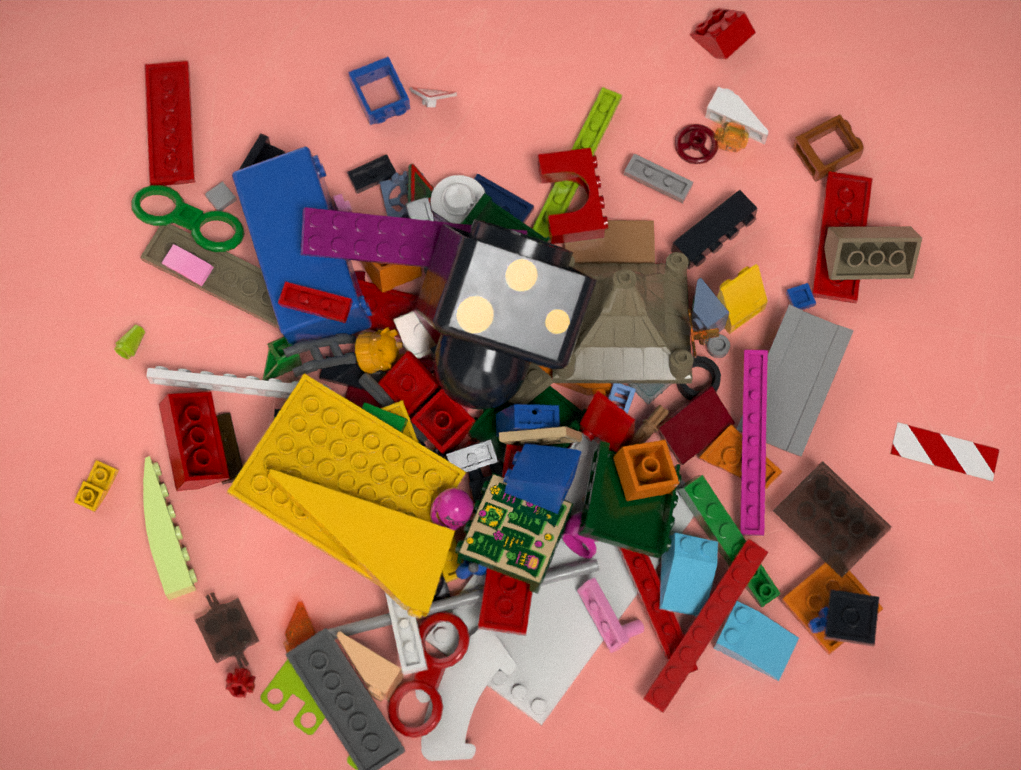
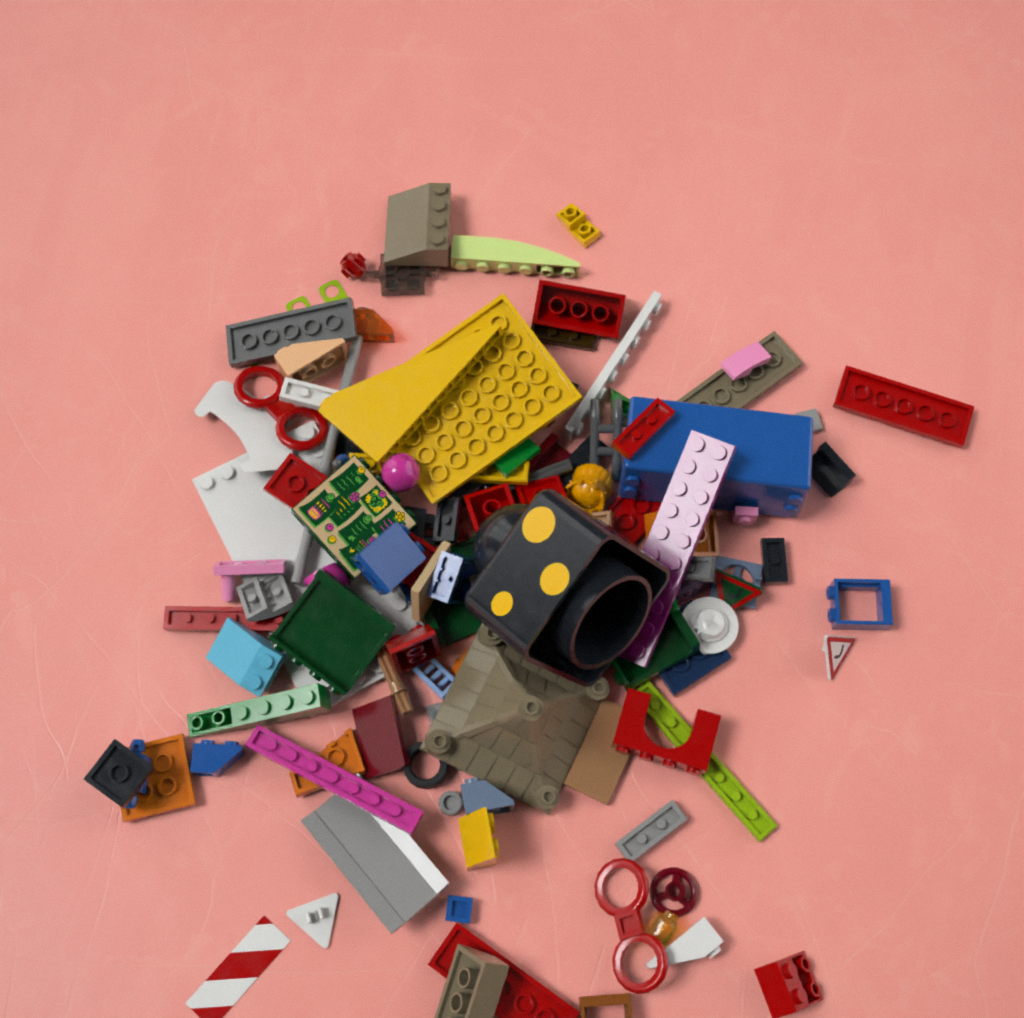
camera: 115 degrees right, 0 degrees up
(129, 342) = (696, 295): lime cone -> none
(168, 635) = (419, 226): none -> dark tan slope
(187, 217) = (800, 380): green bar -> none
(626, 583) = (265, 598): none -> light grey slope
(646, 470) = (349, 655): orange brick -> none
(700, 335) = (460, 772): clear orange shield -> none
(705, 625) = (193, 651): red plate -> none
(715, 229) = (569, 858): black brick -> none
(743, 158) = (631, 926): none -> red bar
(756, 641) = (159, 692): medium azure slope -> none
(788, 559) = (214, 759): none -> blue slope
(832, 519) = (225, 817): clear smoke slope -> none
(868, 409) = (316, 918): none -> white piece

